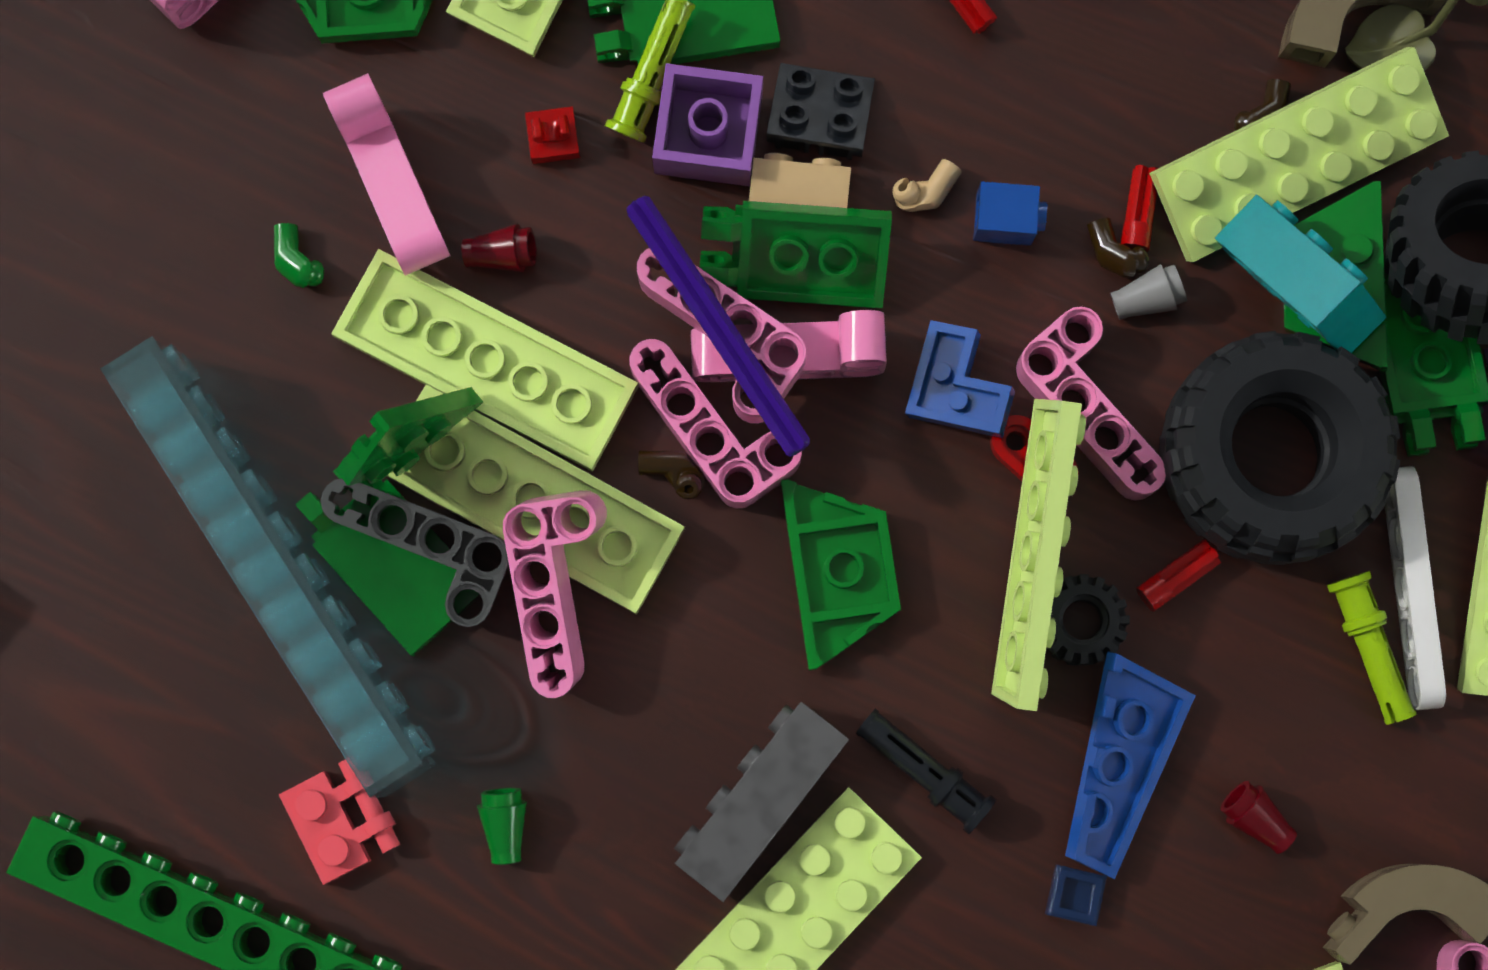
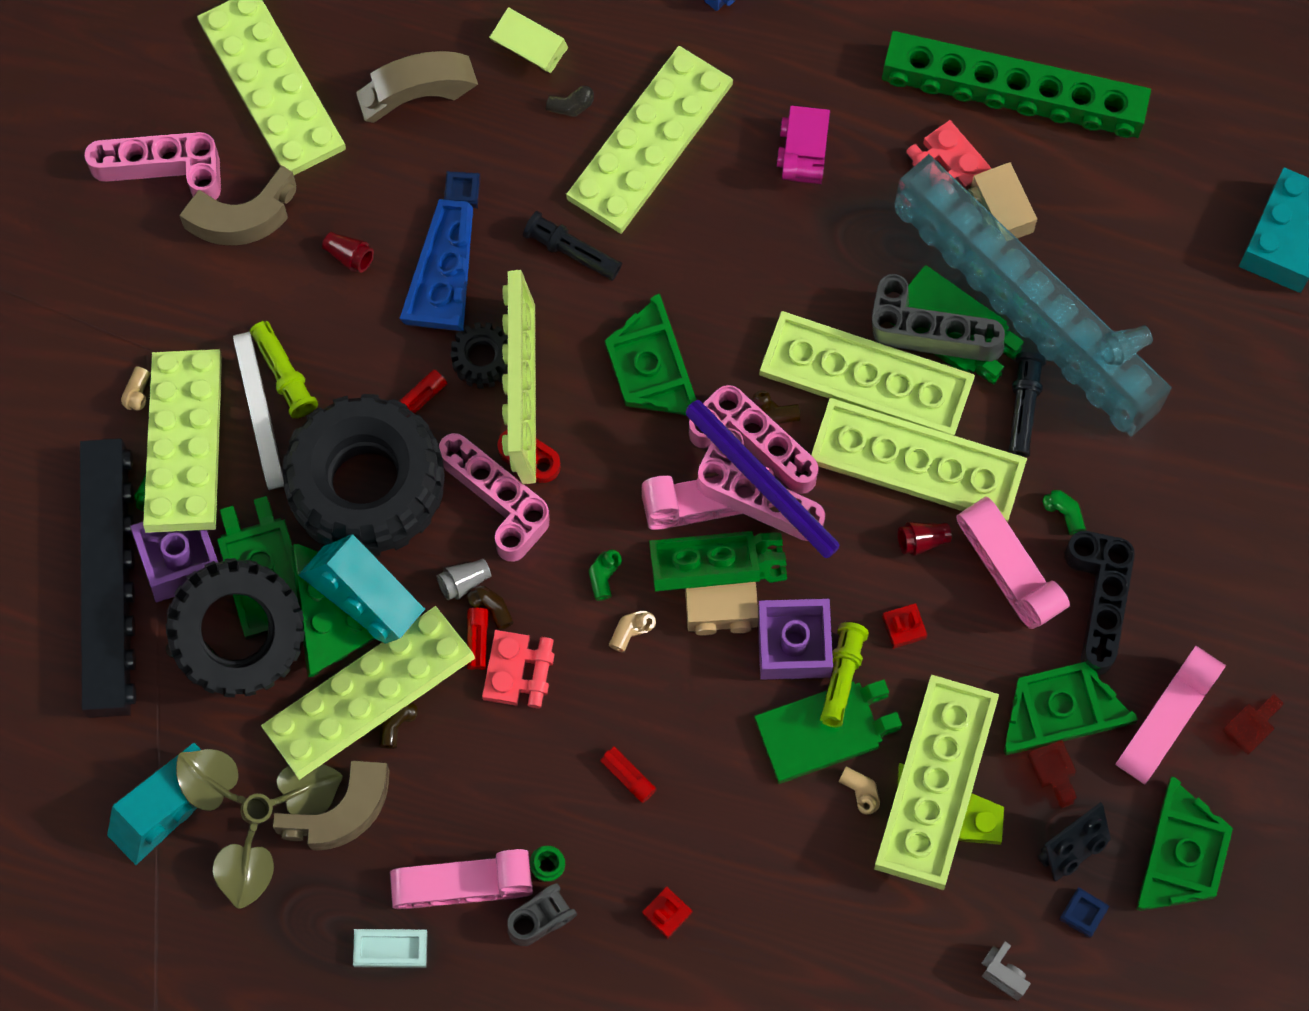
camera: 170 degrees right, 10 degrees down
(153, 434) = (1123, 344): none -> clear light blue cone
(275, 731) = (1005, 199): none -> tan brick
(280, 111) = (1101, 603): none -> black beam
(307, 444) = (1026, 388): none -> black pin
(403, 434) = (958, 376): green wing -> none
(503, 821) = (843, 176): green cone -> none
(552, 871) = (805, 144): none -> dark pink hinge
(557, 594) = (854, 333): bright pink beam -> none
(761, 801) = (677, 207): flat silver brick -> none
(820, 110) = (716, 671): black hinge -> none
(945, 391) = (597, 488): blue plate -> none
(956, 275) = (601, 571): none -> green arm
(1008, 213) = (570, 616): blue brick -> none
(1104, 164) = (506, 669): none -> coral plate

